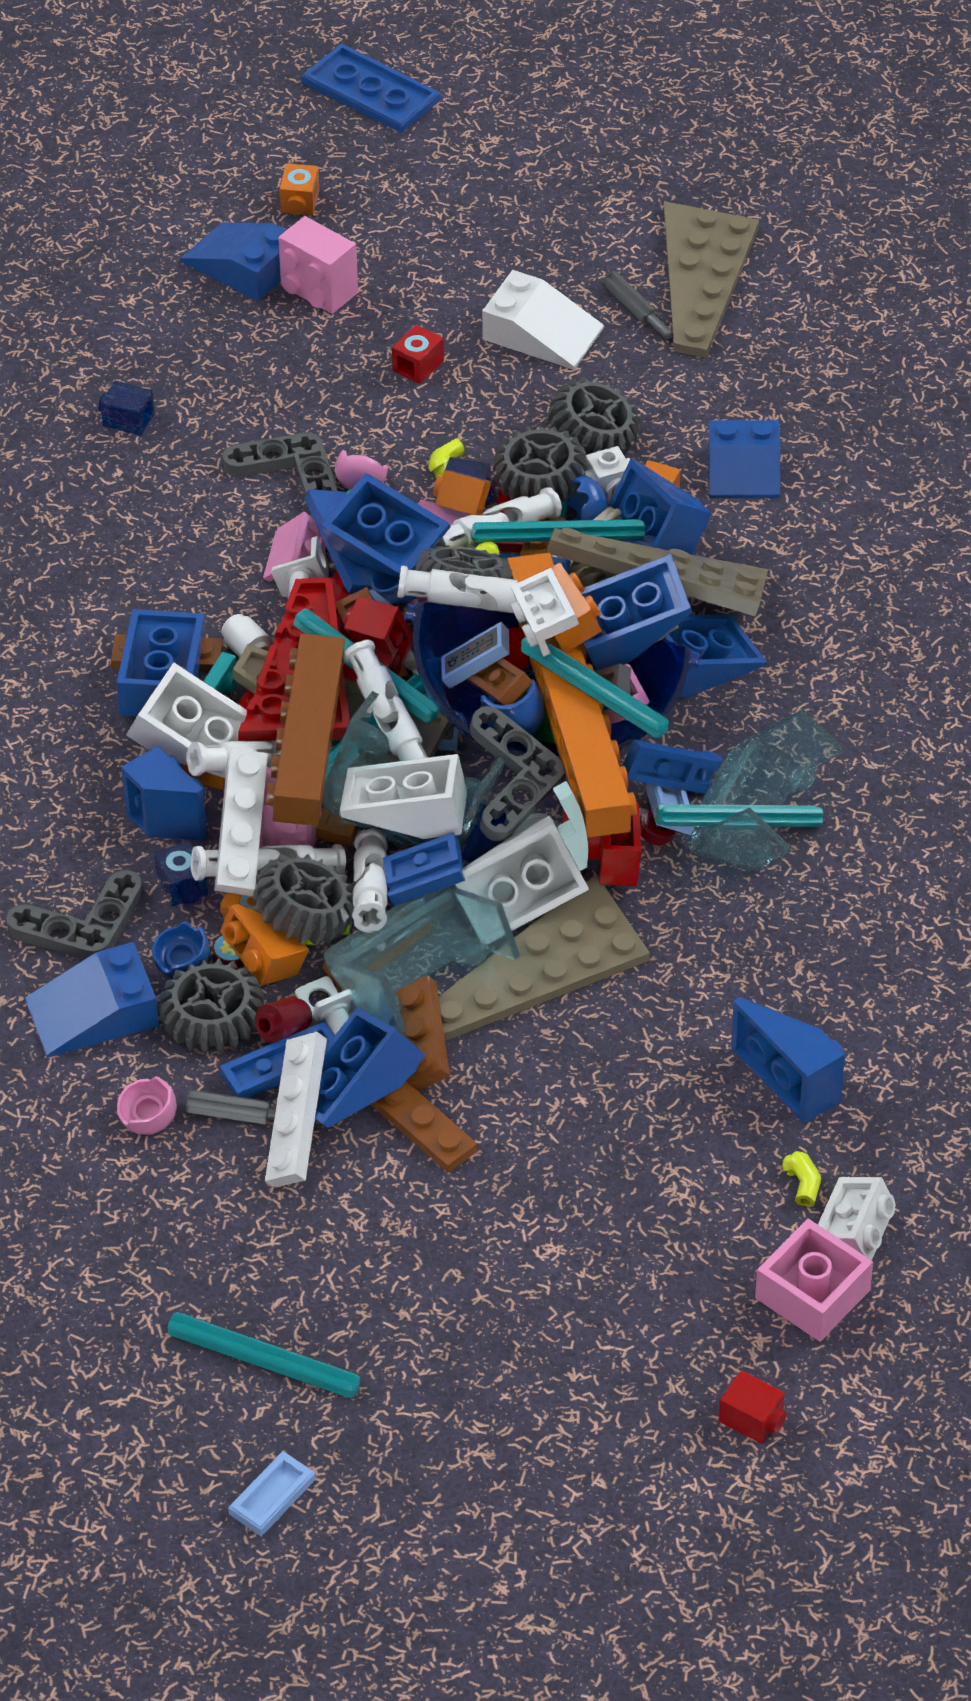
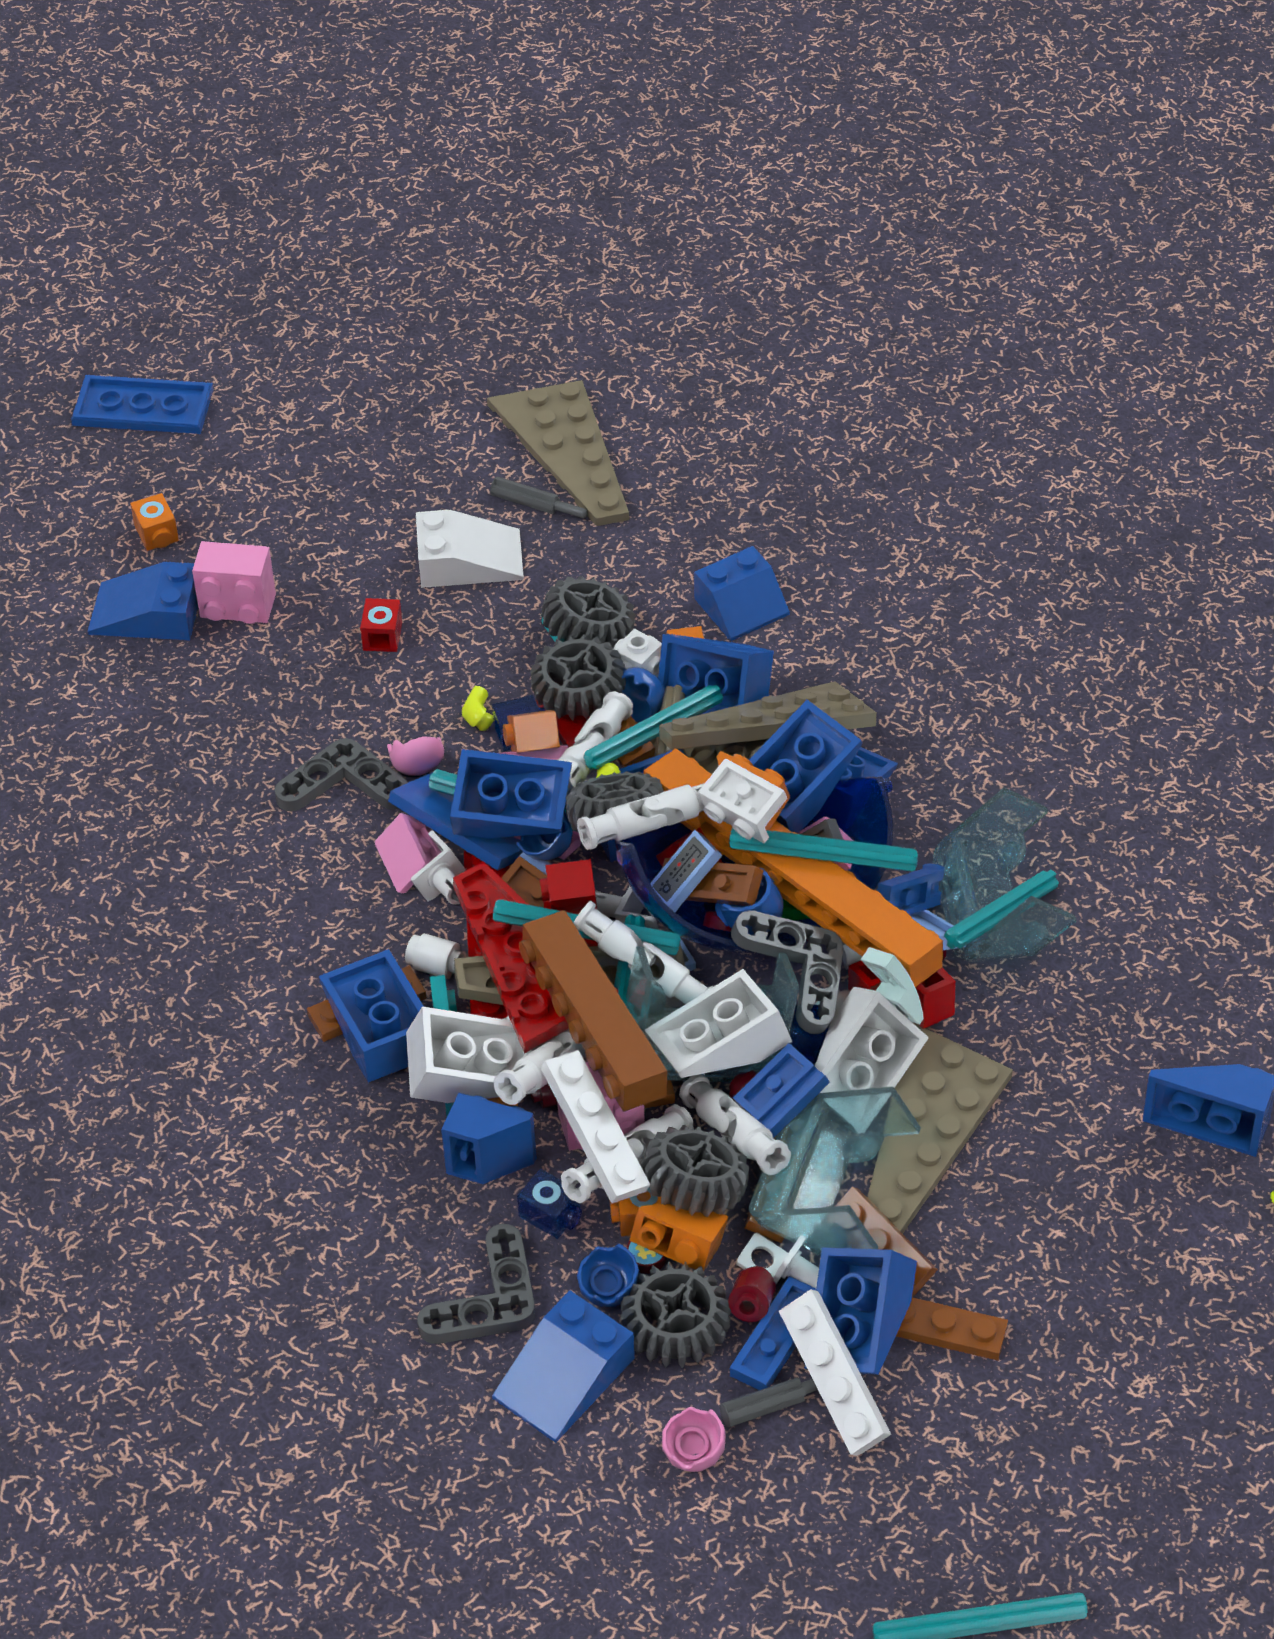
camera: 30 degrees left, 0 degrees up
(127, 407) = (151, 791): clear blue brick -> none

